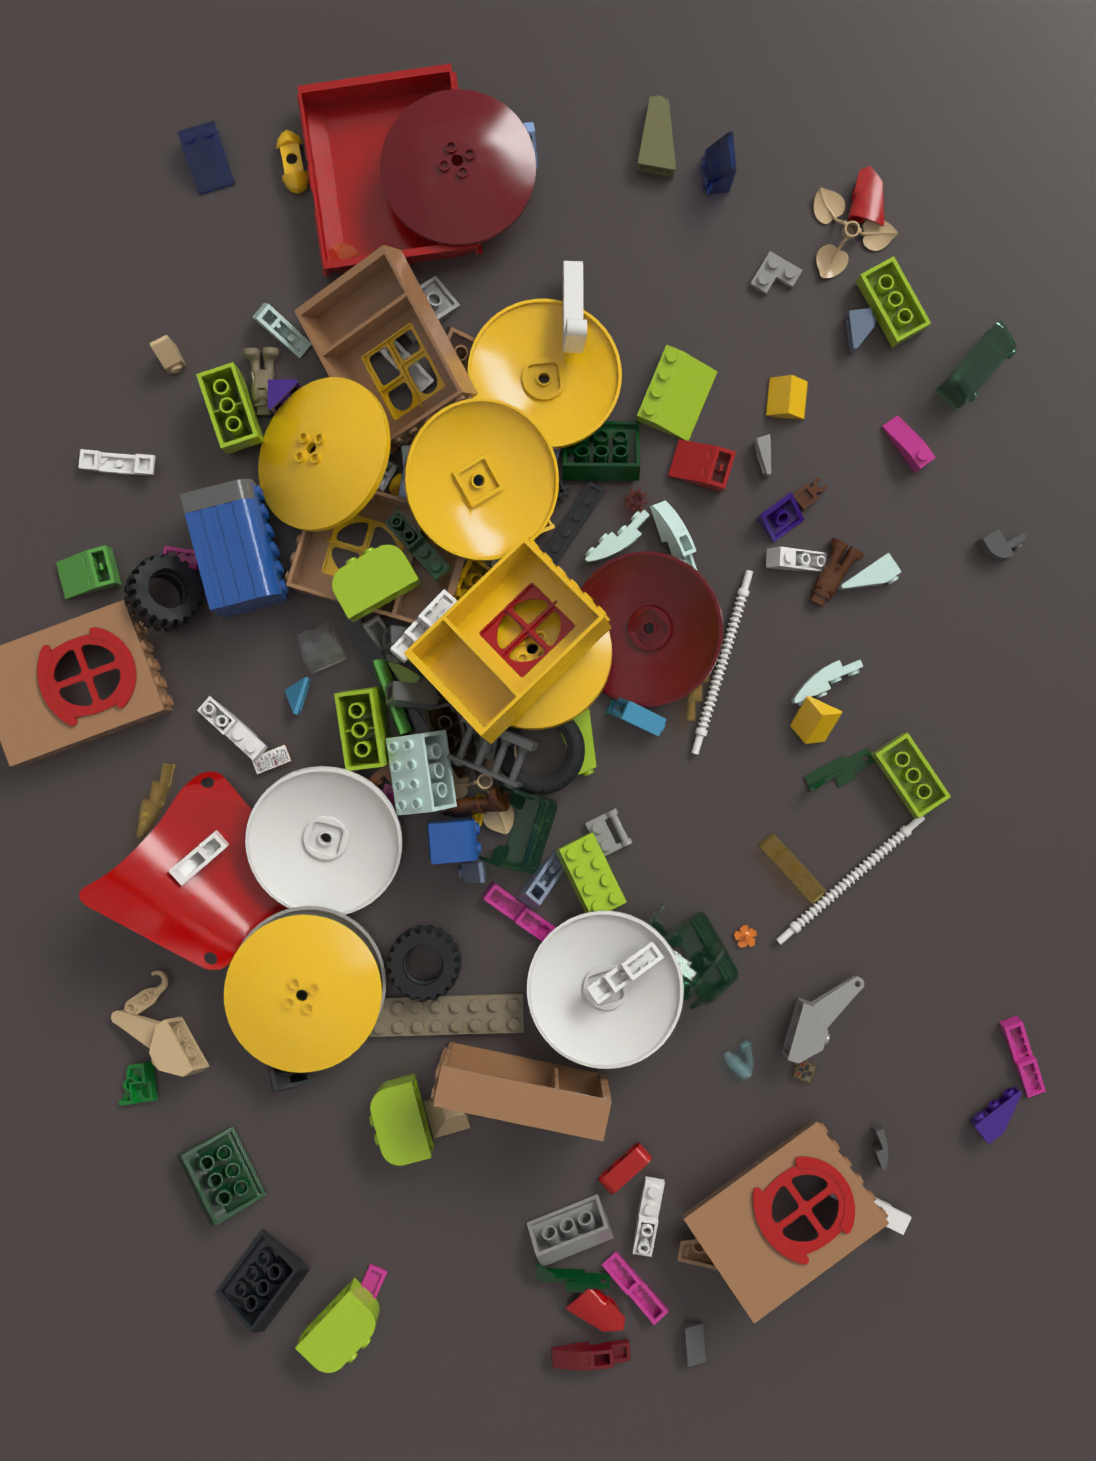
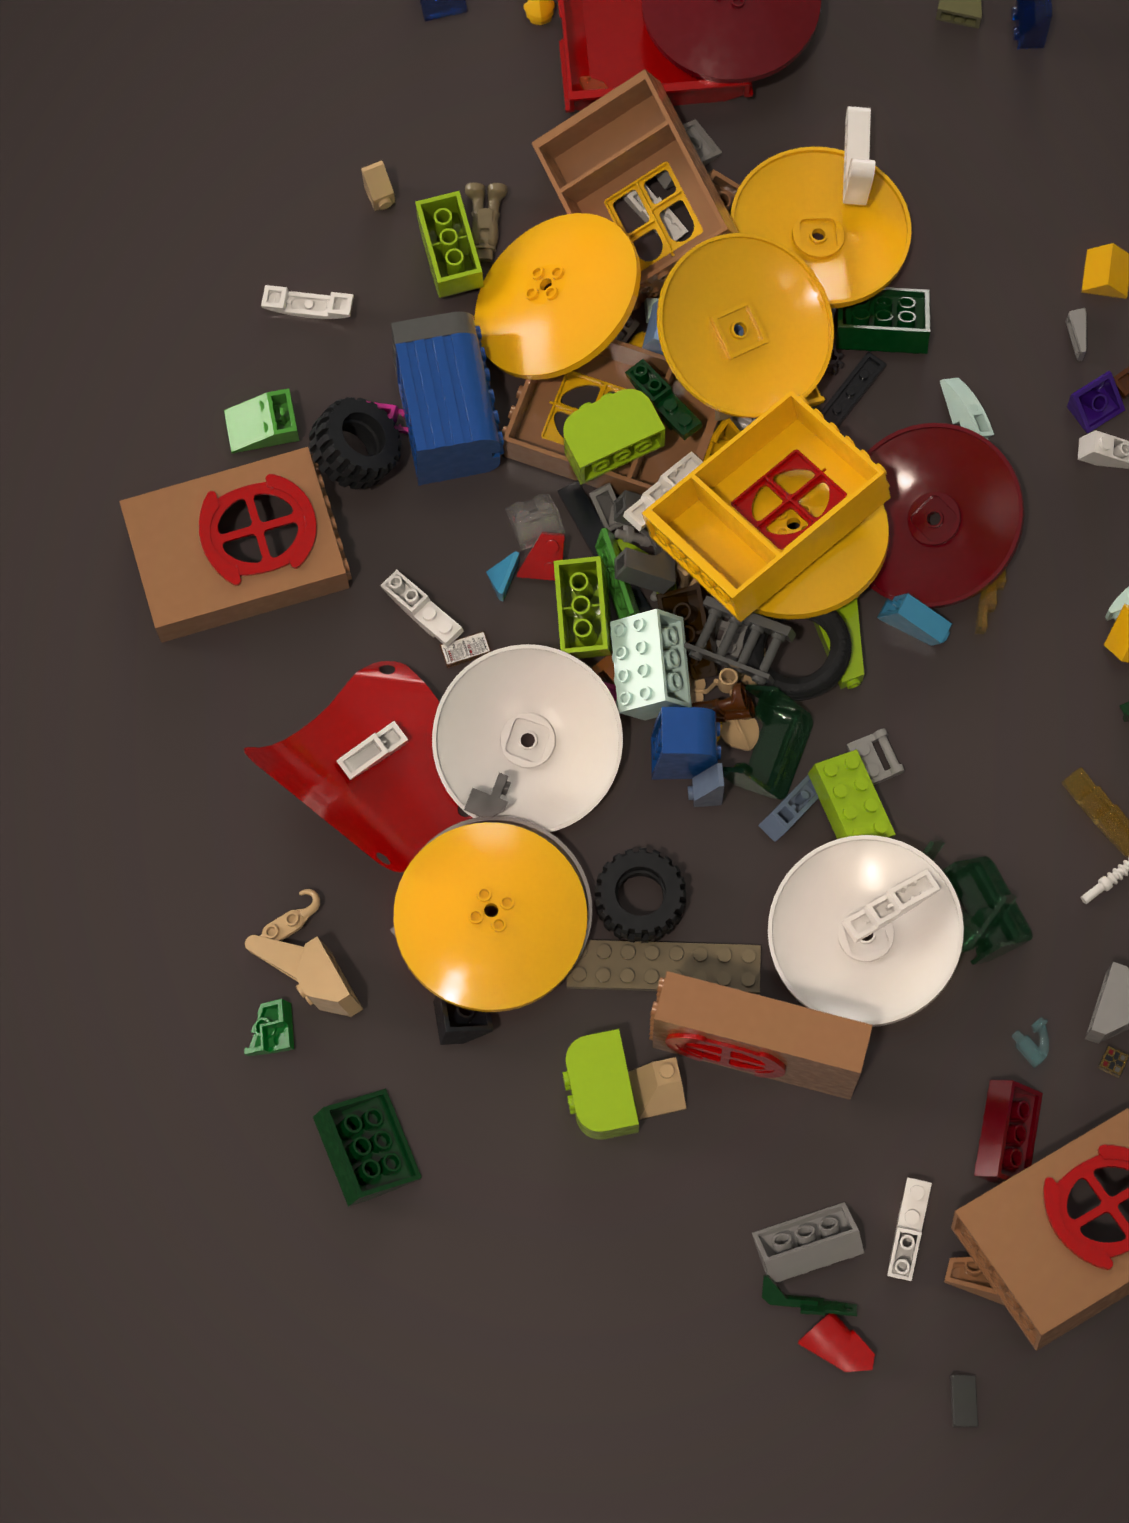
camera: 10 degrees right, 15 degrees down
(152, 807) = (318, 693): clear yellow slope -> none
(262, 1282) = (410, 1284): black slope -> none
(279, 391) = (508, 229): dark purple slope -> none
(281, 329) = (511, 167): light aqua slope -> none
(293, 898) = (486, 804): none -> dark grey brick
(330, 679) = (541, 558): none -> red wing
(340, 1329) = (508, 1344): lime brick -> none
(373, 1279) = (547, 1302): dark pink tile -> none
(517, 911) = (755, 843): dark pink slope -> none
(590, 1357) = (828, 1402): dark red slope -> none
(612, 545) = (892, 420): light aqua slope -> none
(625, 1168) = (881, 1168): red beam -> none
(631, 502) = (921, 381): clear red gear -> none
(635, 1287) = (889, 1324): dark pink slope -> none
(676, 394) = (974, 260): lime slope -> none
(702, 464) = (1004, 339): red slope -> none
(723, 1135) = (1007, 1130): none -> dark red slope
(742, 593) = (1049, 488): white hose -> none
(745, 936) = (1042, 893): orange plant -> none
(775, 268) = (1095, 131): light grey plate -> none

